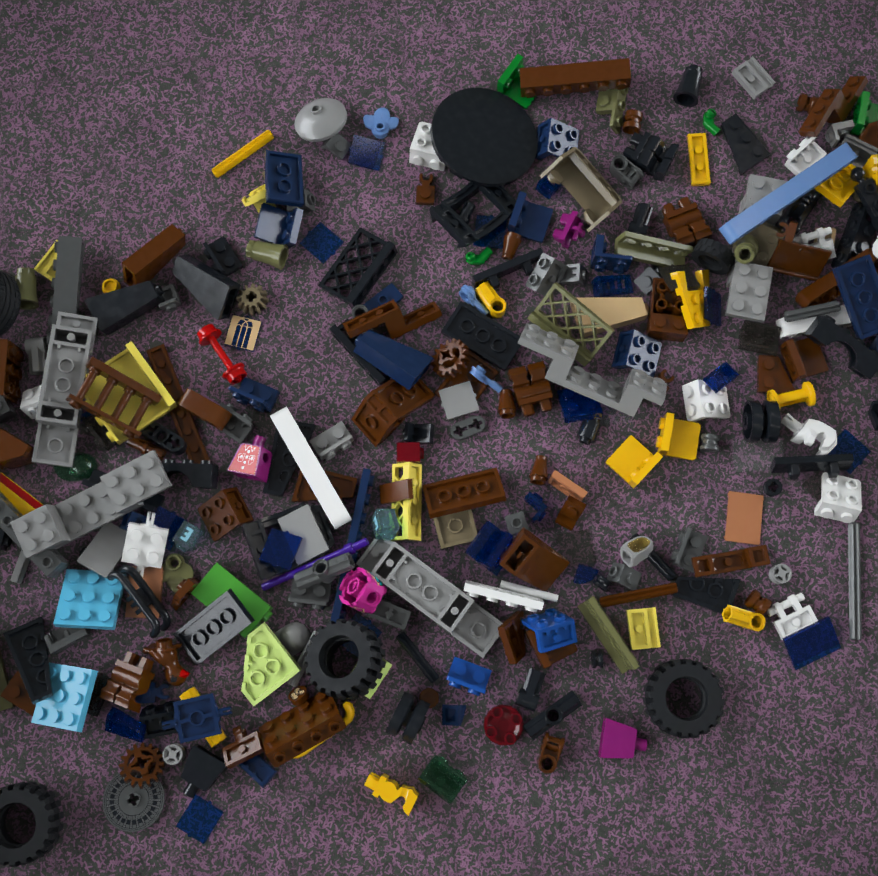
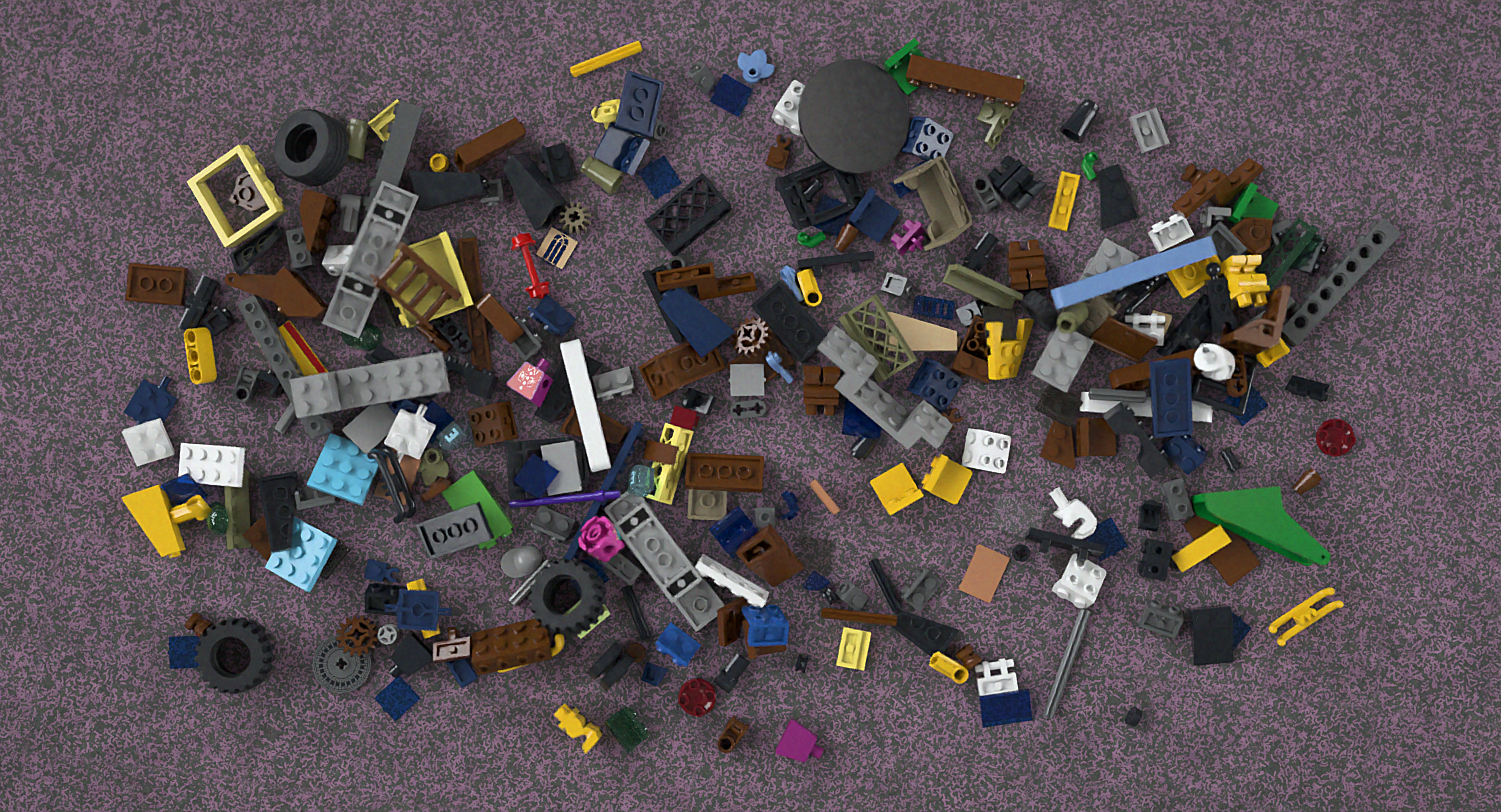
camera: 15 degrees right, 10 degrees up
(119, 723) = (350, 595): clear blue slope -> none
(128, 681) = (363, 557): reddish brown hips -> none
(166, 655) = (404, 542): reddish brown animal -> none
(265, 664) = (493, 579): yellowish green plate -> none
(299, 695) = (516, 615): reddish brown tile -> none
(320, 119) = (695, 54): light grey dish -> none
(324, 571) = (580, 509): dark grey piece -> none
(384, 296) = (703, 255): dark blue plate -> none
(506, 404) = (792, 397): reddish brown cone -> none
(529, 591) = (759, 582): white piece -> none
(539, 471) = (803, 471): reddish brown cone -> none
(545, 274) = (870, 280): dark grey bracket -> none
(563, 707) = (731, 705): black piece -> none
(570, 513) = (819, 521): reddish brown bracket -> none
(604, 261) = (926, 279): dark blue bracket -> none
(608, 635) = (819, 644): olive fence -> none
(632, 122) = (1009, 143): reddish brown wheel -> none
(636, 550) = (870, 575): light grey rock -> none
(710, 443) = (975, 493): dark grey wheel -> none
(710, 698) = (884, 744): black tyre -> none
(712, 306) = (1023, 359): clear blue piece -> none
(721, 377) = (1016, 430): clear blue slope -> none
(730, 561) = (956, 610): reddish brown slope -> none
(761, 421) = (1029, 488): black wheel -> none
(783, 571) = (1001, 637): light grey wheel -> none
(790, 231) = (1120, 312): reddish brown tile -> none
(806, 394) = (1071, 473): yellow hose -> none

